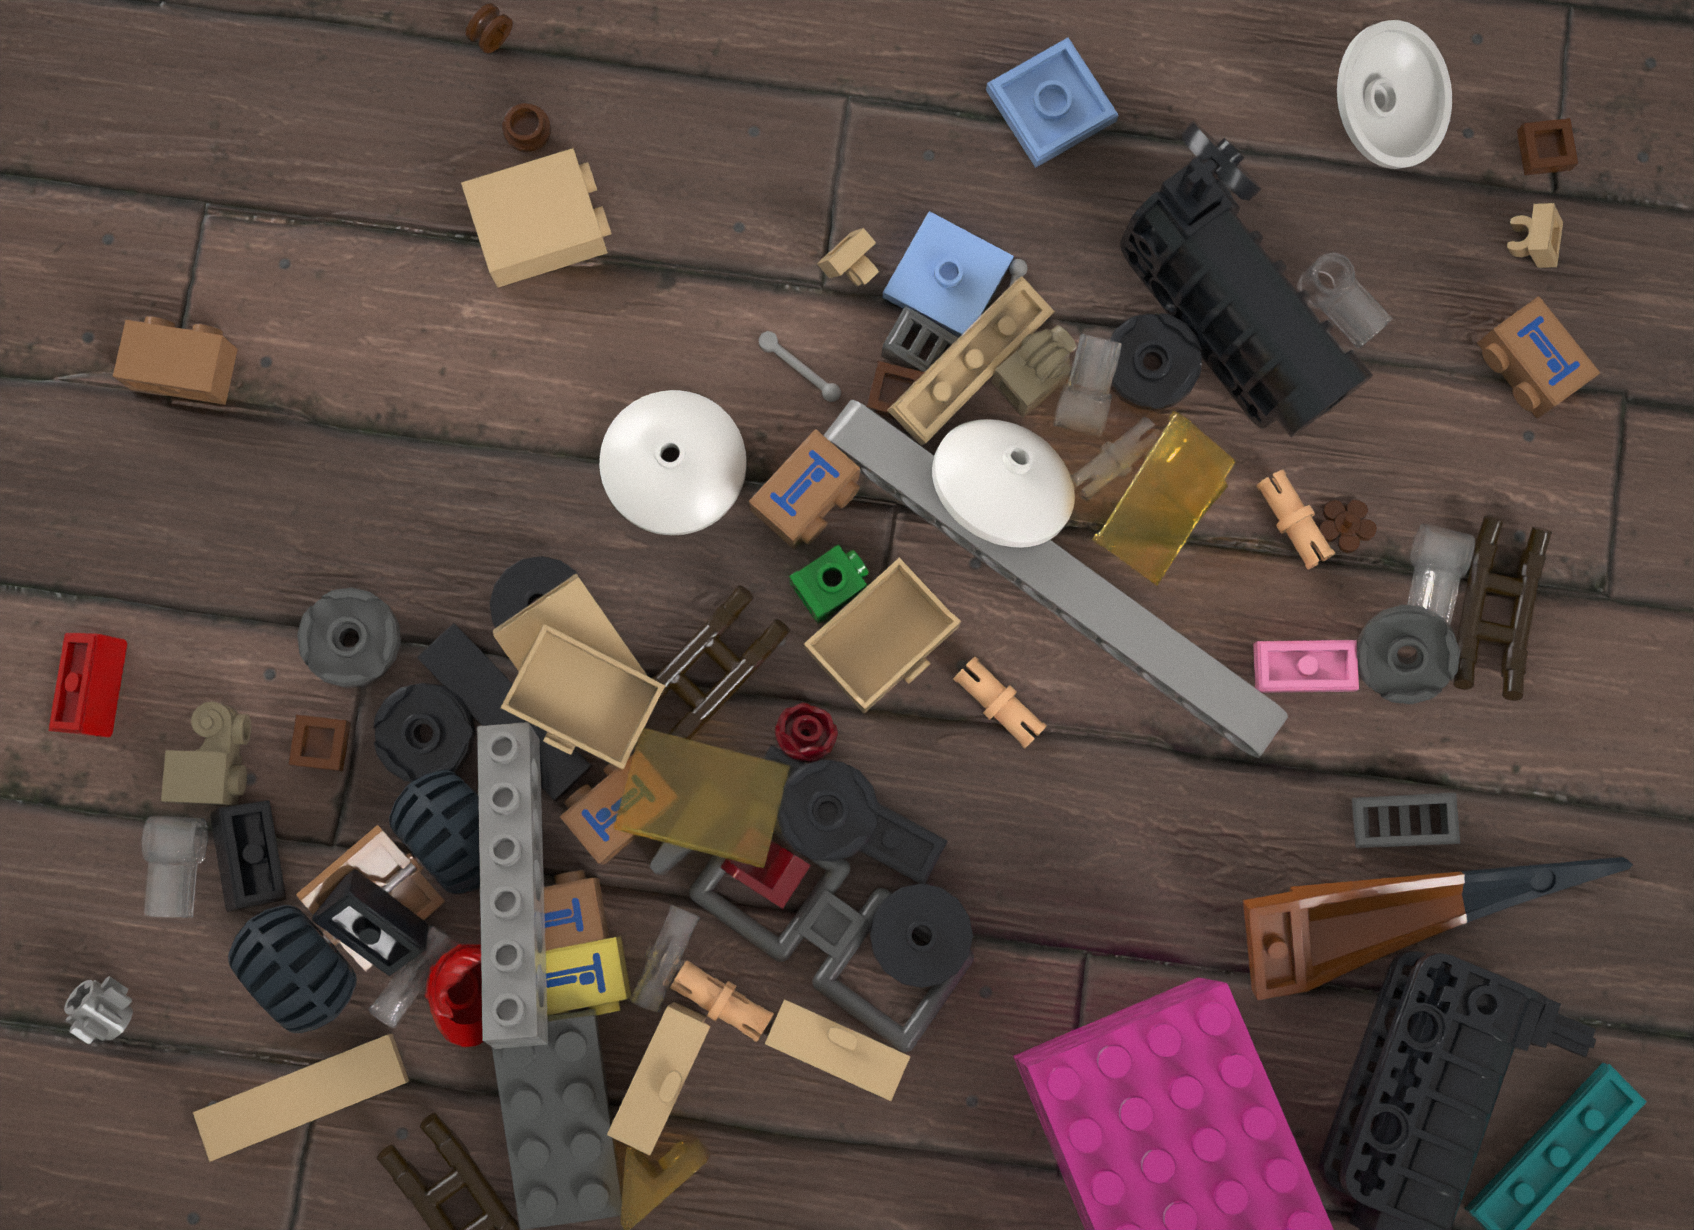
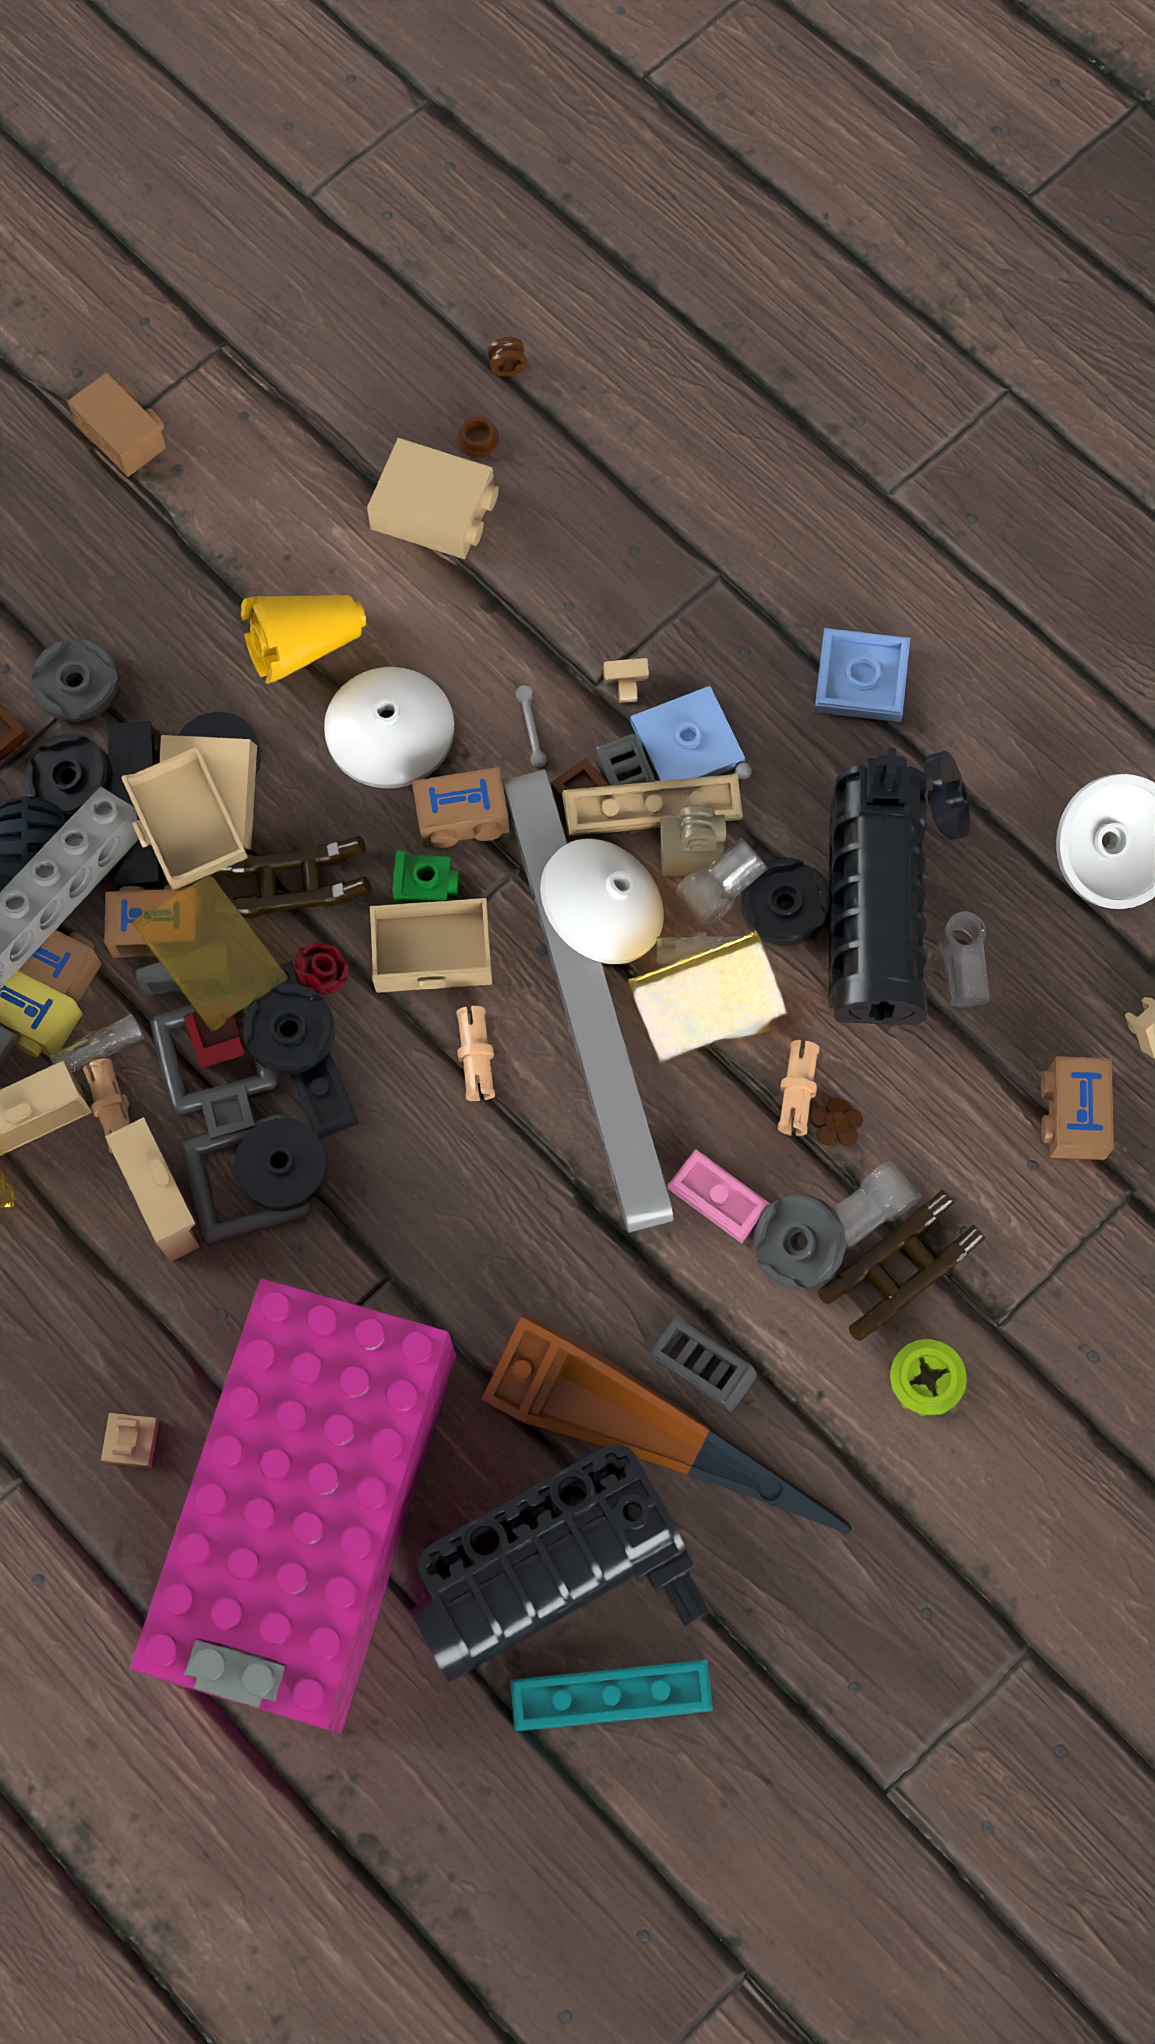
camera: 45 degrees right, 10 degrees down
(521, 437) = (298, 630): none -> yellow cone
(1615, 681) = (936, 1357): none -> lime gear

